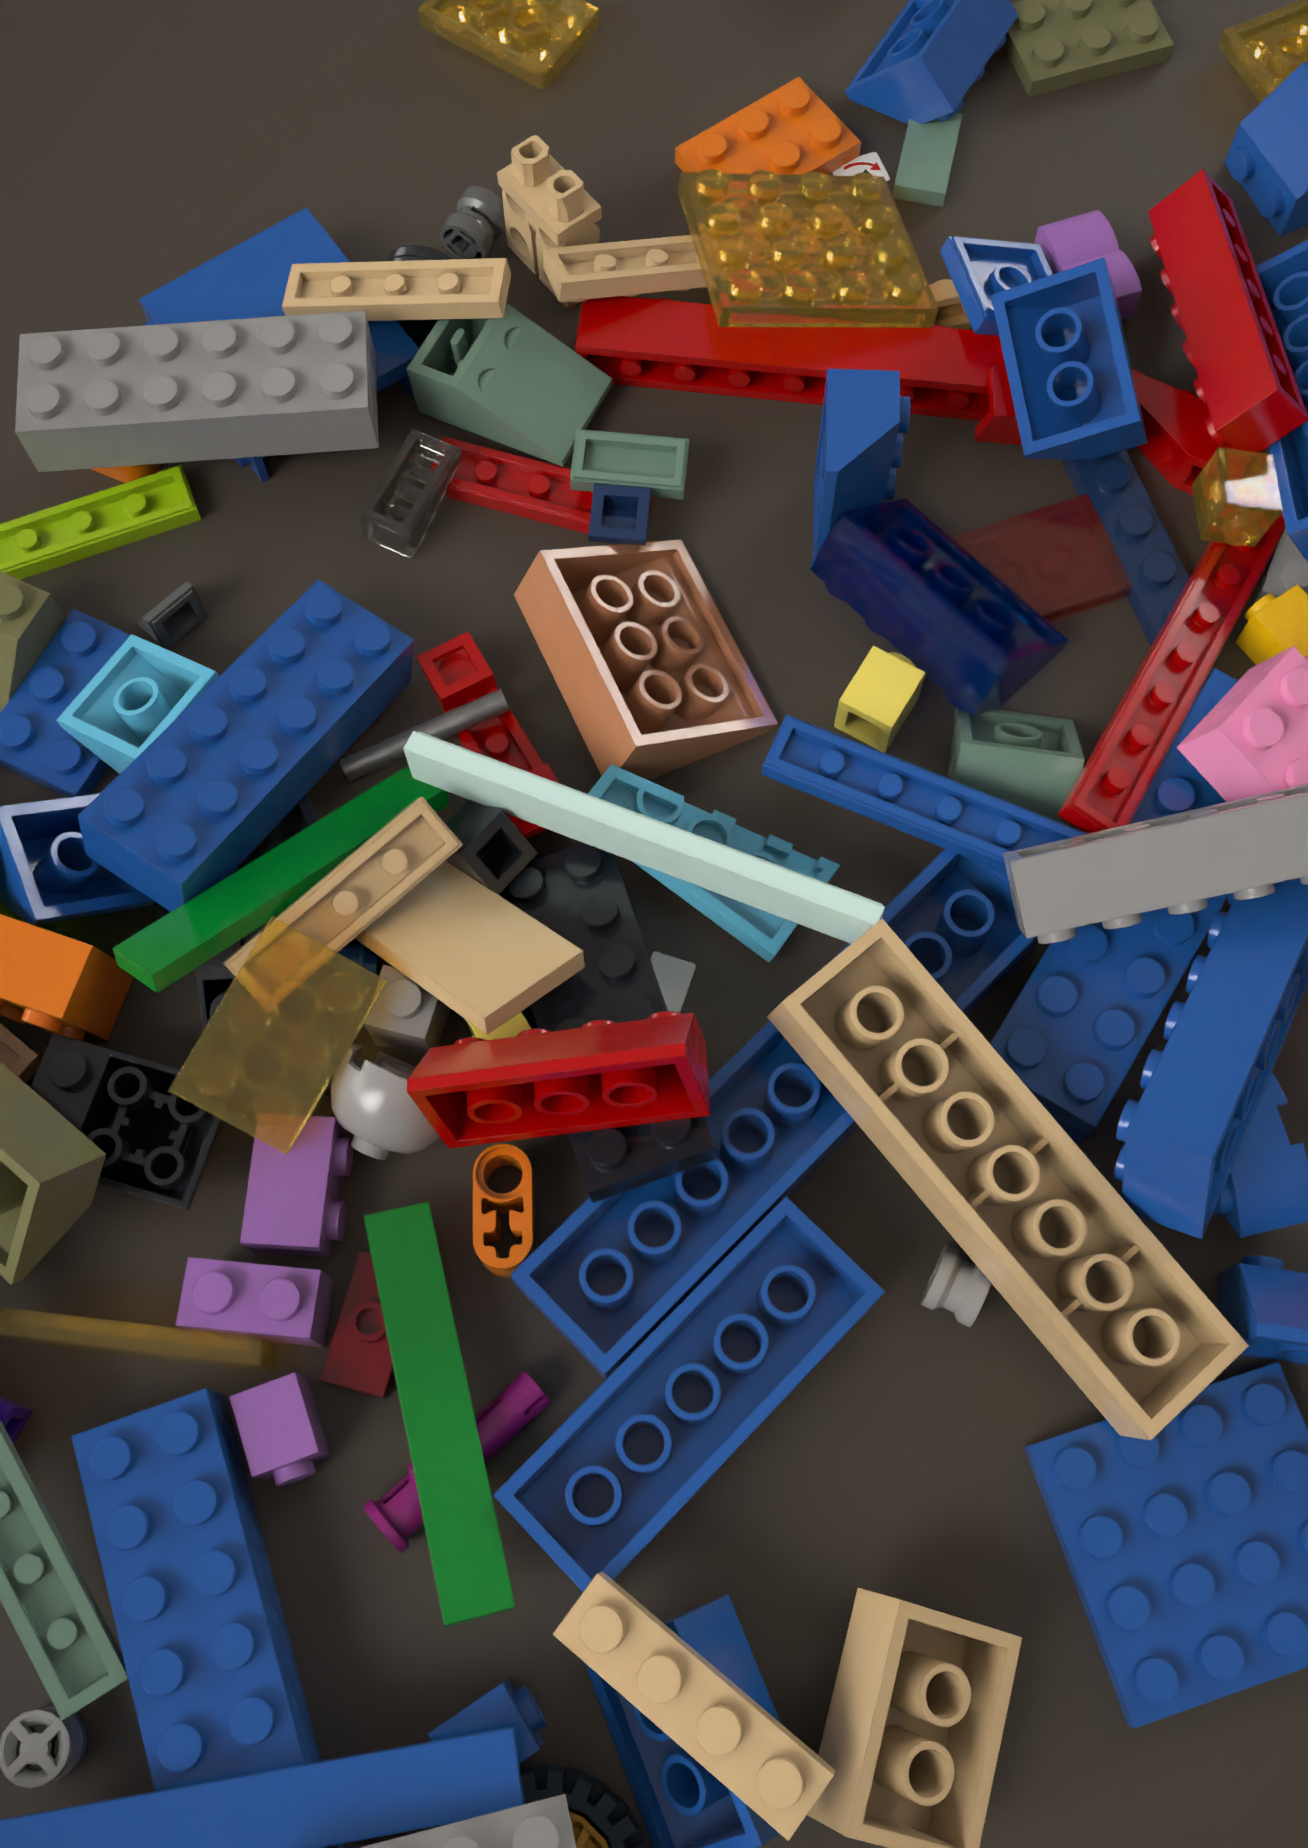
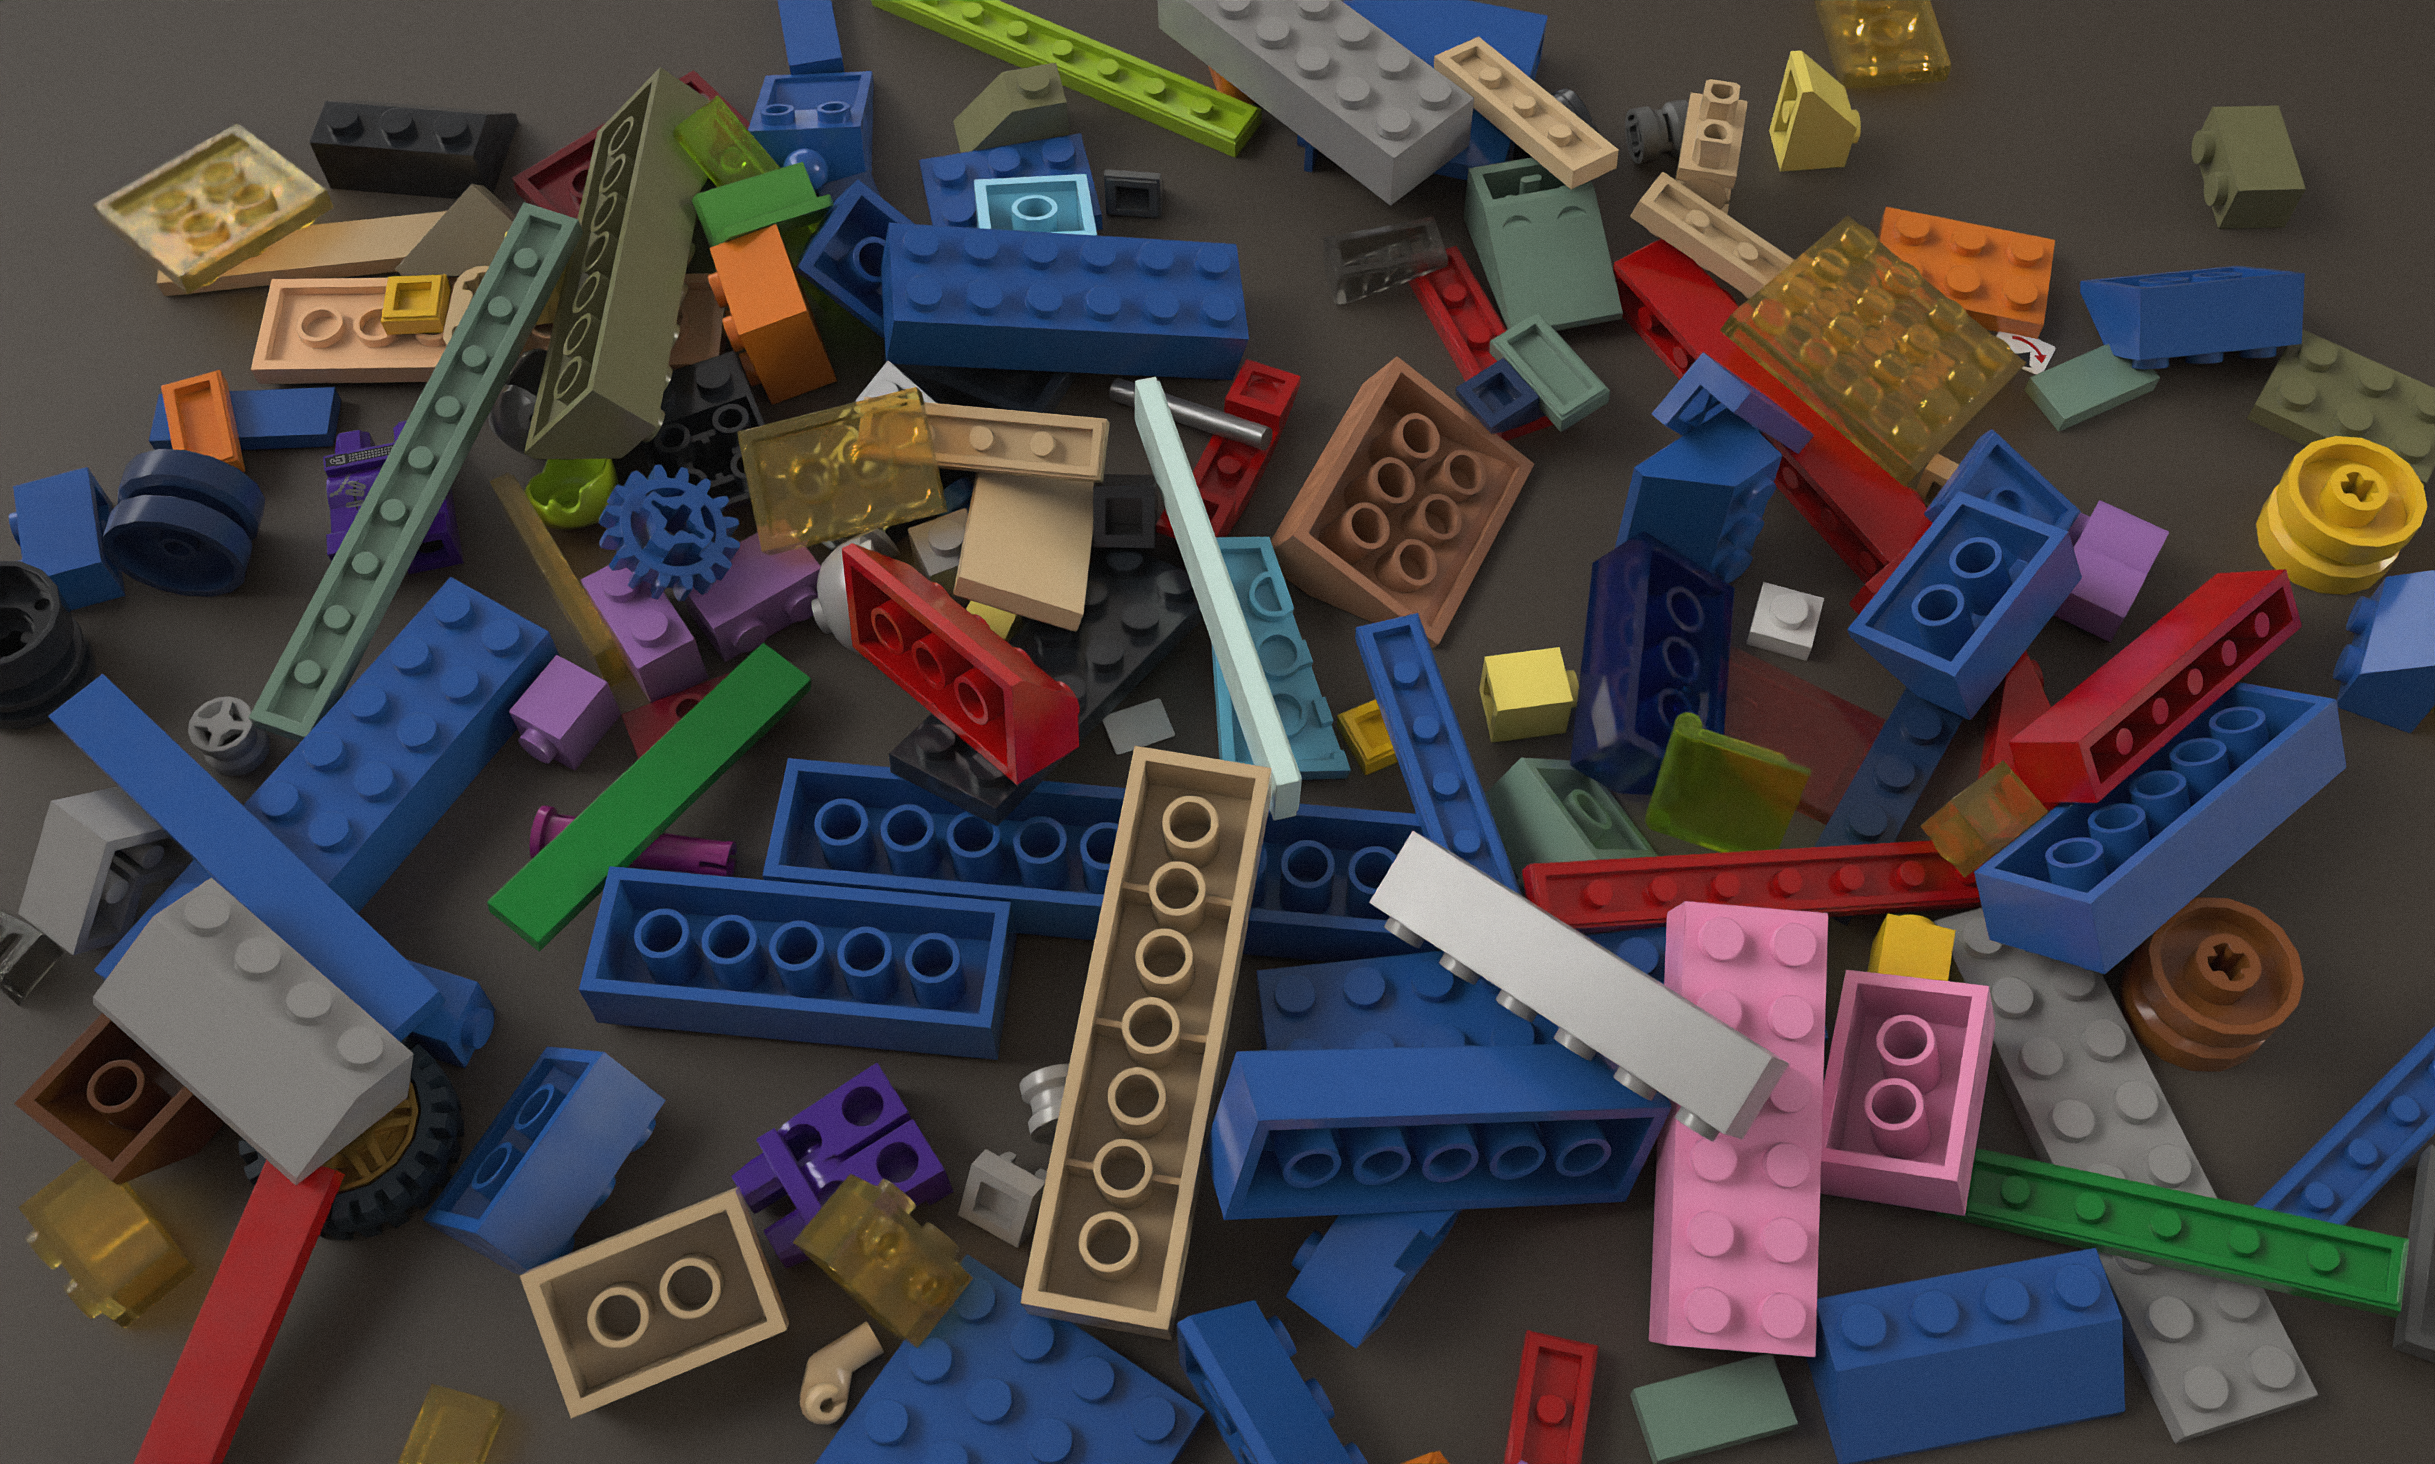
camera: 50 degrees right, 10 degrees down
(65, 1274) = (572, 491): none -> lime hair
(205, 1226) = (638, 529): none -> blue gear
(266, 885) = (895, 368): green tile -> none
(488, 1226) = (839, 729): orange beam -> none
(566, 121) = (1812, 118): none -> light yellow slope
(695, 1704) = (547, 1107): tan plate -> none
(813, 373) = (1712, 388): none -> blue fence
(817, 825) = (1367, 737): none -> yellow tile
(888, 1513) = (849, 1131): none -> dark purple hips
(952, 489) = (1785, 621): none -> white plate
(1005, 1383) = (1002, 1196): none -> light grey tile
(1012, 1515) = (885, 1257): none -> clear yellow brick
(1049, 1625) = (830, 1374): none -> tan arm
(1097, 635) = (1723, 791): none -> clear neon green piece
(1165, 107) = (2341, 515): none -> yellow wheel

